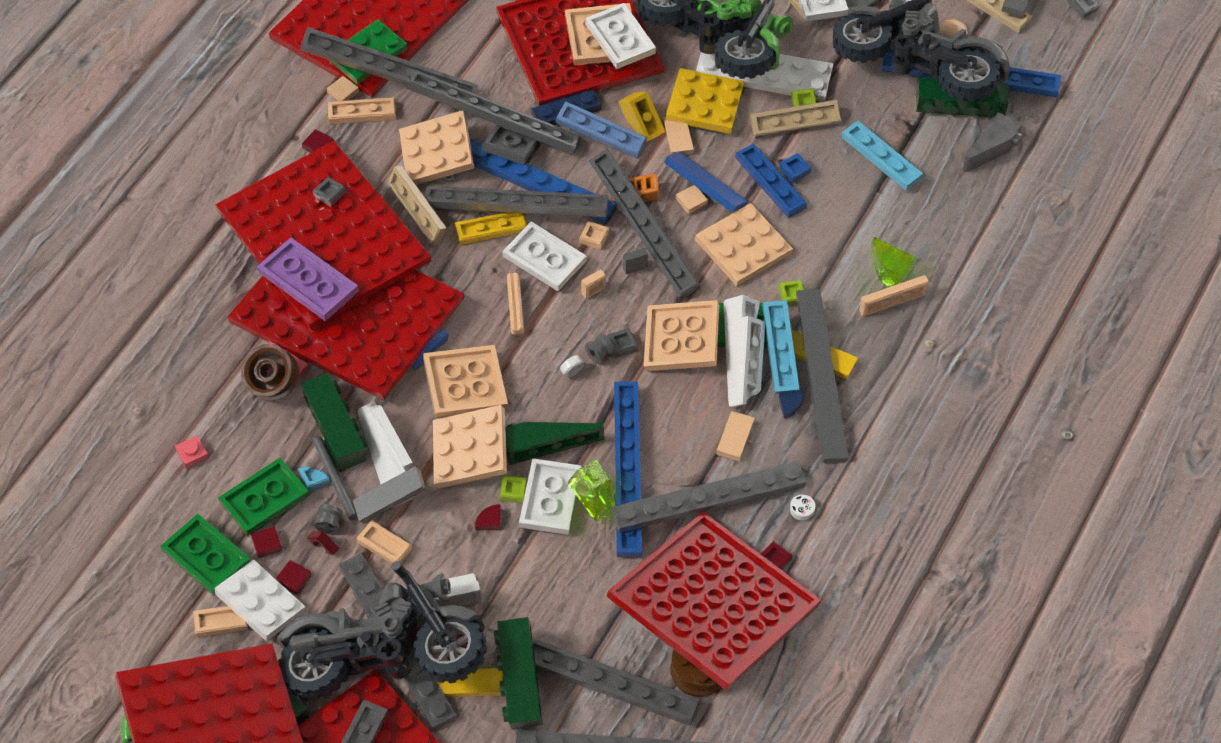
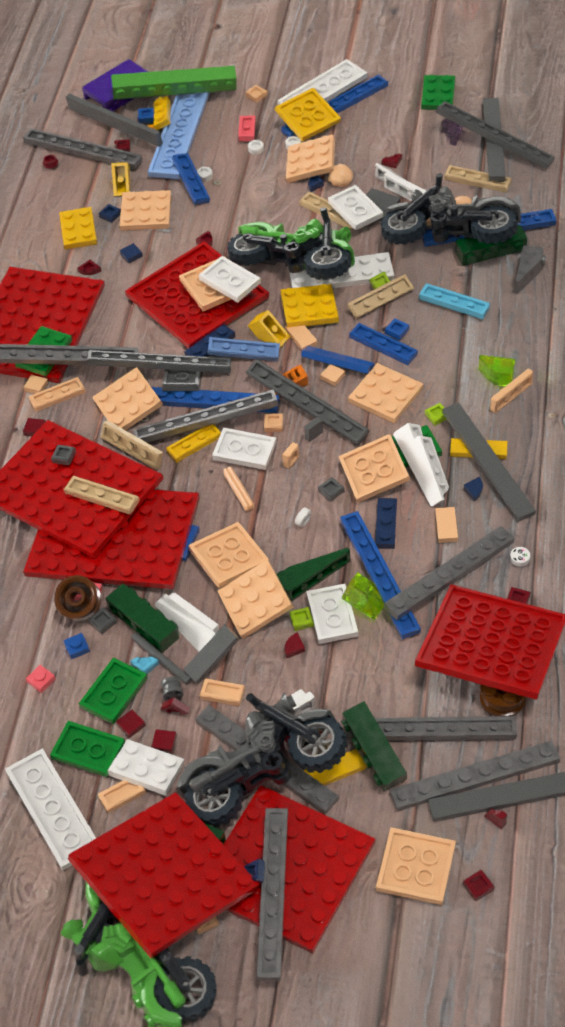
camera: 15 degrees left, 5 degrees down
(136, 603) = (50, 806): none -> white plate
(248, 428) = (76, 646): none -> blue plate
(290, 408) = (102, 620): none -> dark grey tile
(308, 279) = (77, 520): medium lavender plate -> none
(349, 257) = (101, 495): none -> tan tile
(599, 348) = (317, 497): dark grey wheel -> none
(666, 408) = (386, 523): none -> dark blue plate
(780, 347) = (450, 451): medium azure plate -> none

